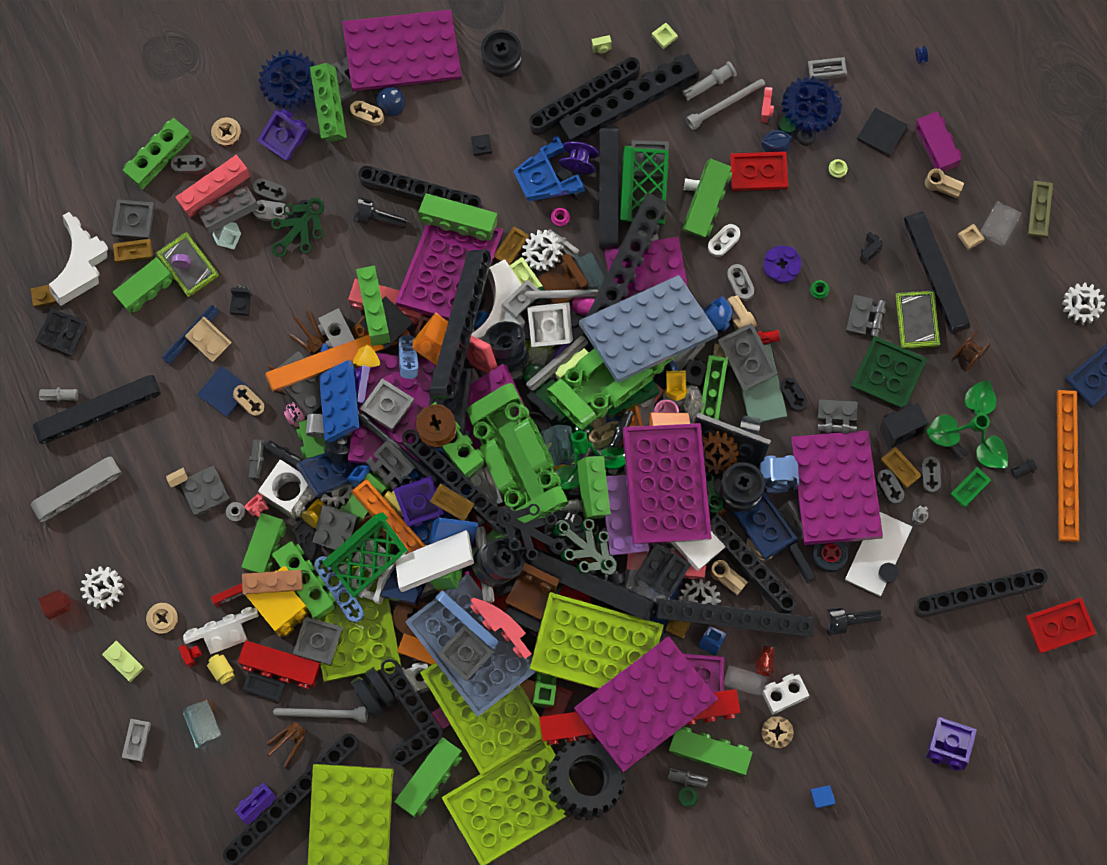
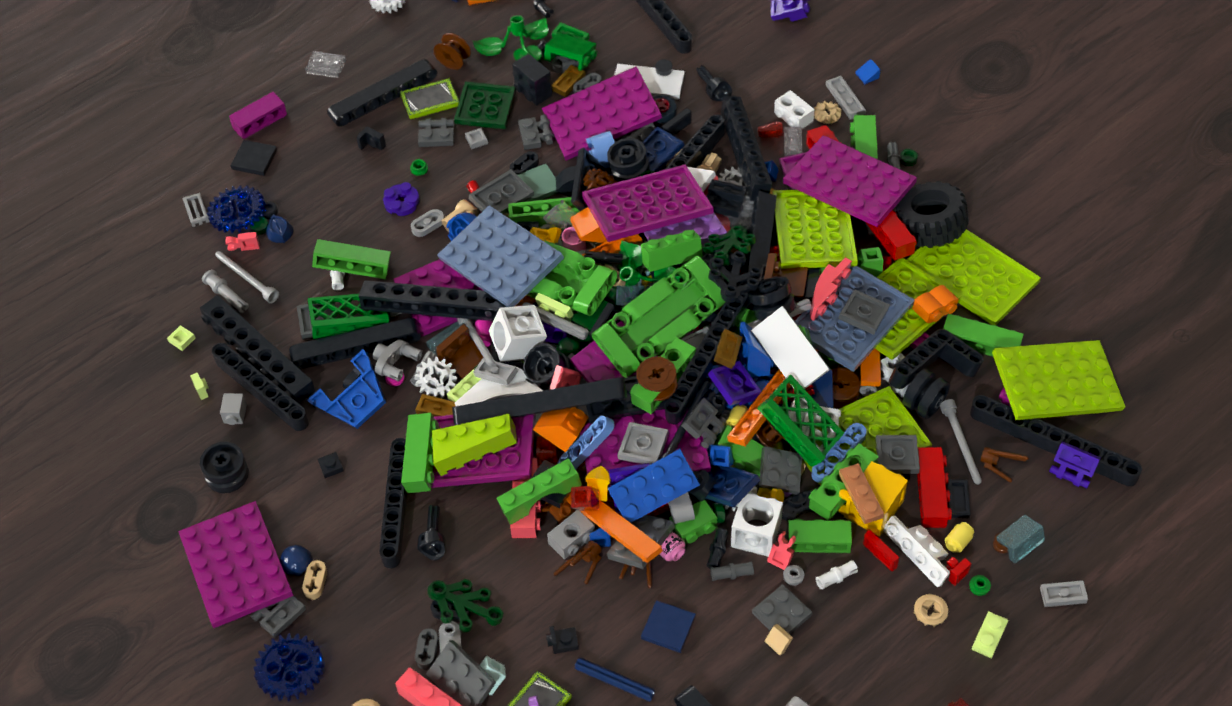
camera: 110 degrees left, 20 degrees down
(104, 579) = (915, 678): white gear -> none
(176, 672) = (979, 590): none -> green plate
(208, 339) = (616, 656): tan plate -> none
(222, 548) = (836, 574): none -> white pin
(251, 397) = (675, 597): tan beam -> none
(283, 134) = (357, 650): dark purple plate -> none
(328, 102) = (312, 610): bright green brick -> none
(348, 340) = (584, 498): none -> clear red brick
(447, 252) = (471, 441): none -> lime wedge
(468, 737) = (935, 304): none -> orange brick
(470, 622) = (833, 315): medium blue beam -> none
(566, 70) = (233, 408): none -> light grey brick
(579, 157) = (330, 368): dark purple piece -> none
(581, 212) = (388, 355): none -> light grey connector
(723, 241) = (389, 243): white plate -> none
(759, 171) = (307, 229): red plate -> none
(794, 760) = (845, 97): none -> light grey tile
(838, 168) = (296, 179): yellowish green plate -> none
(846, 355) = (476, 138): none -> light grey tile
(920, 515) = (607, 54): light grey axle -> none
(921, 54) = (171, 144): clear blue bush -> none
(939, 478) = (572, 48): none -> green panel
(945, 185) = (296, 104): tan piece -> none
(970, 237) = (343, 80): tan tile -> none
(1040, 209) = (307, 40): olive plate -> none

